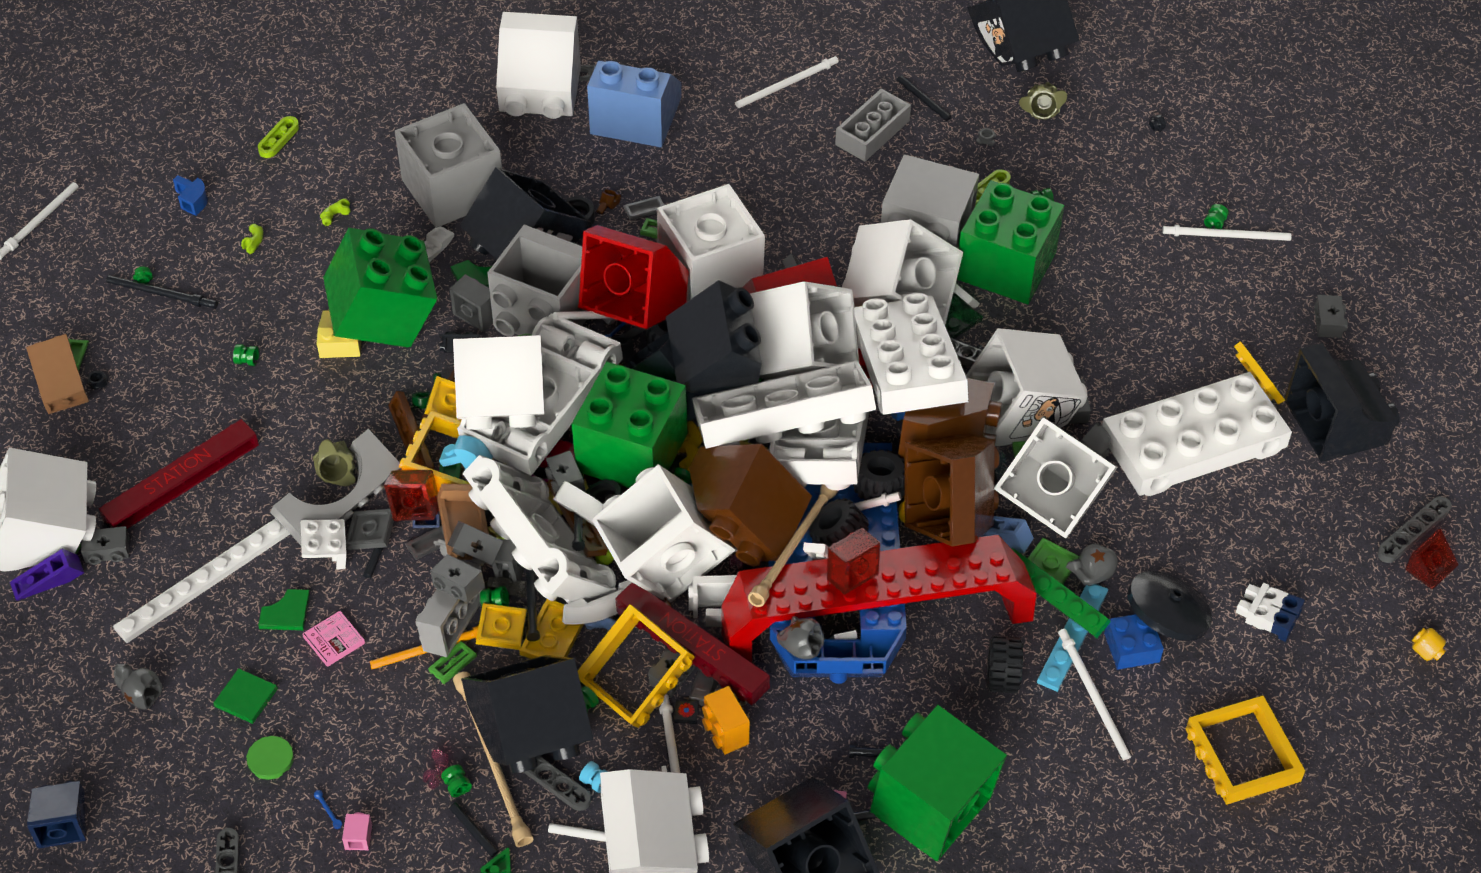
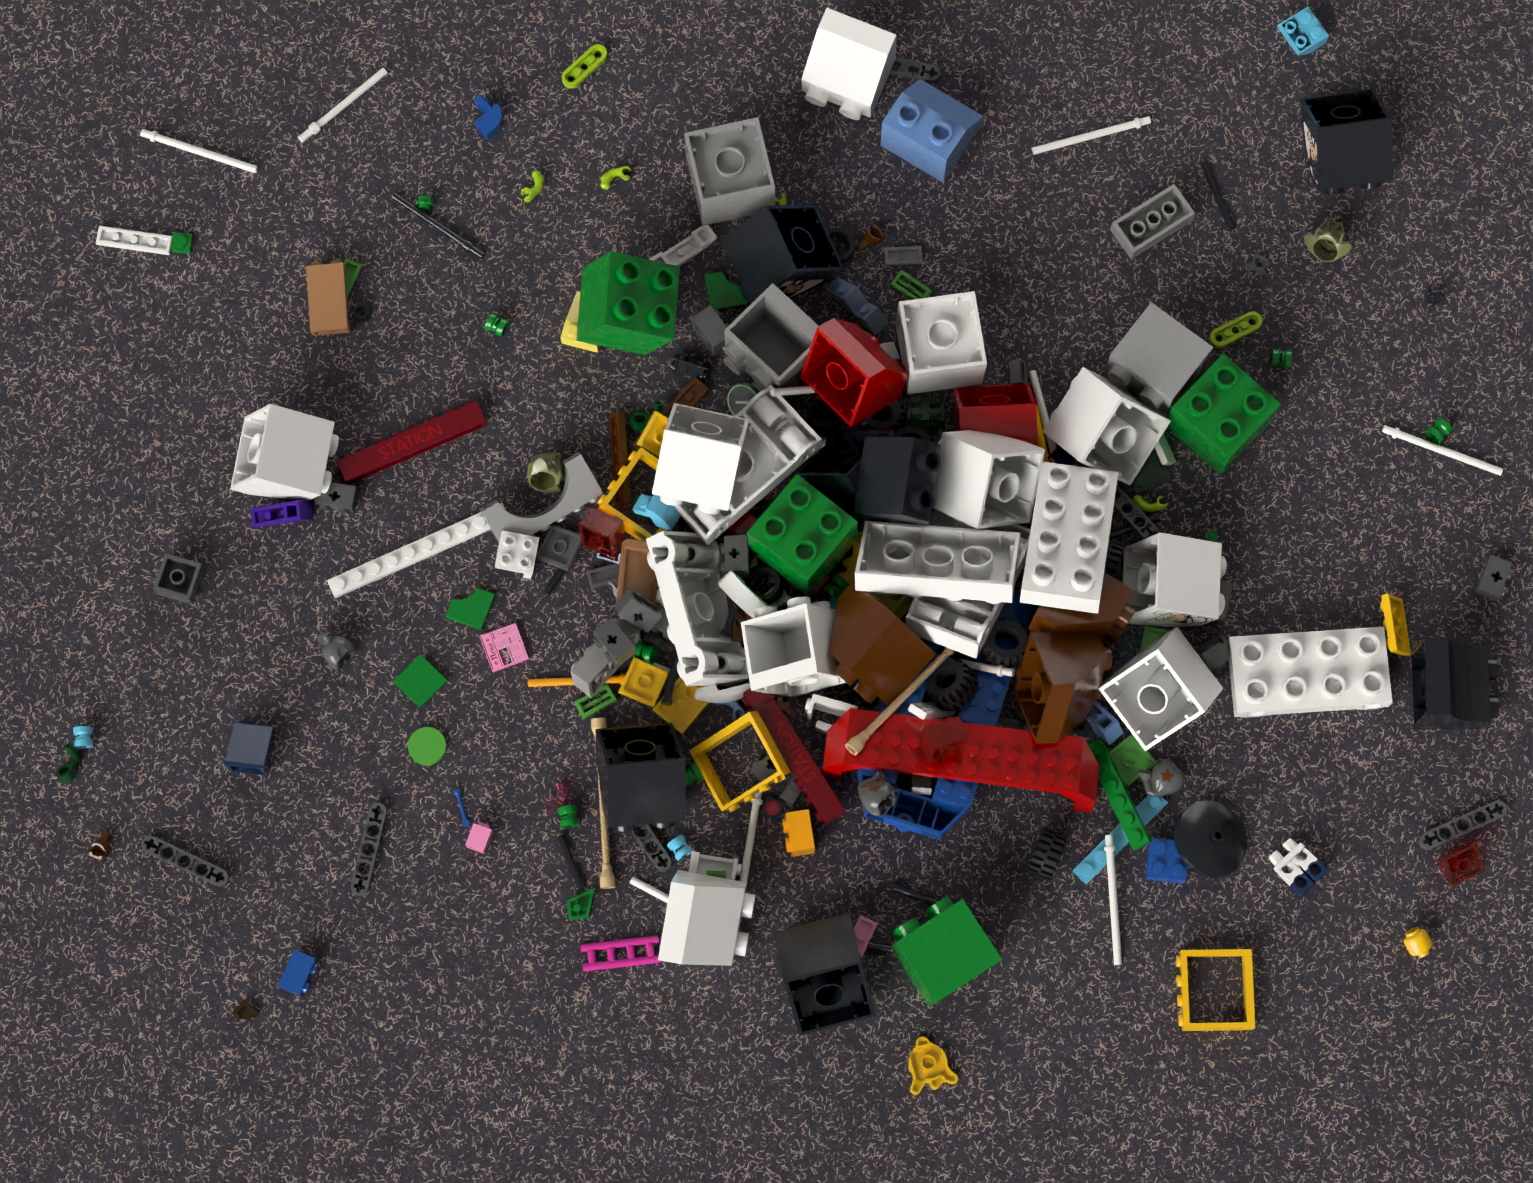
camera: 20 degrees right, 25 degrees up
(977, 340) = (1145, 506): none -> lime piece

